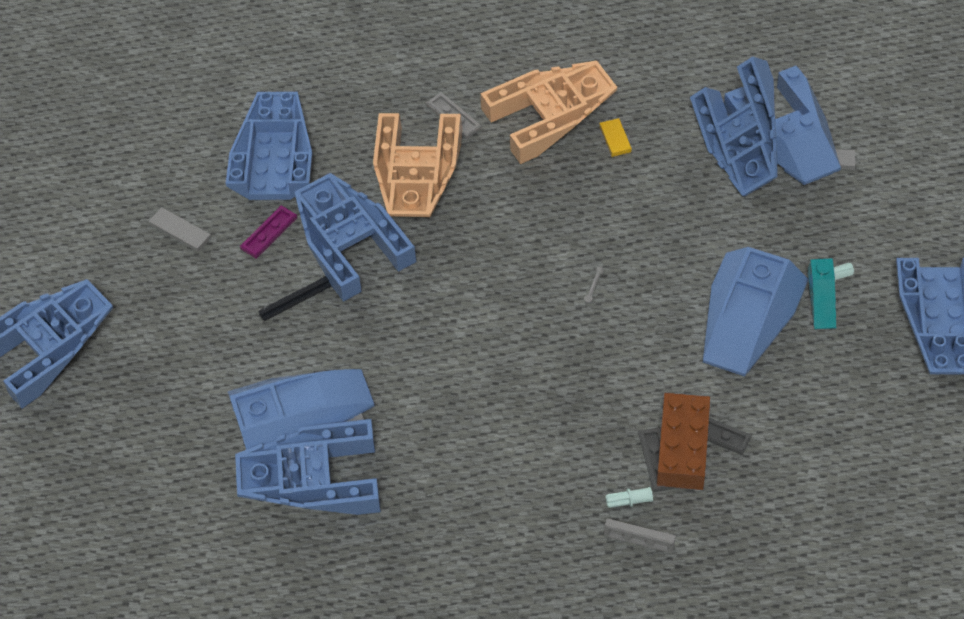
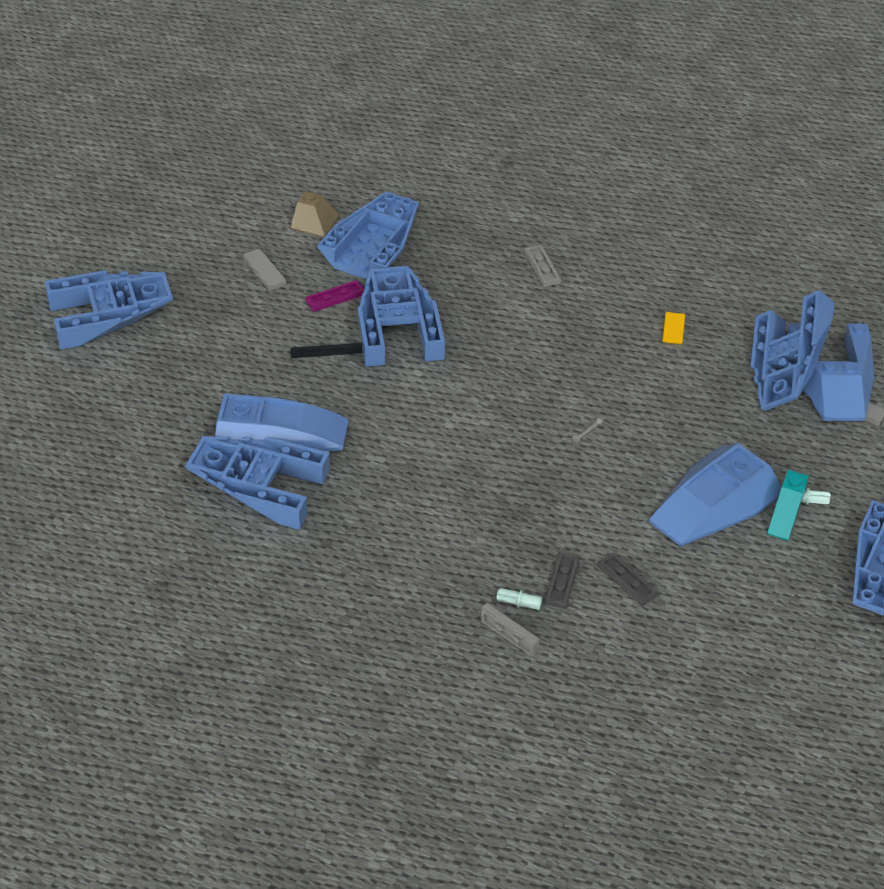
camera: 20 degrees right, 10 degrees down
(197, 147) = (314, 215): none -> dark tan slope
(414, 175) = (478, 293): light nougat wedge -> none
(559, 97) = (636, 280): light nougat wedge -> none
(683, 441) = (591, 570): dark orange brick -> none

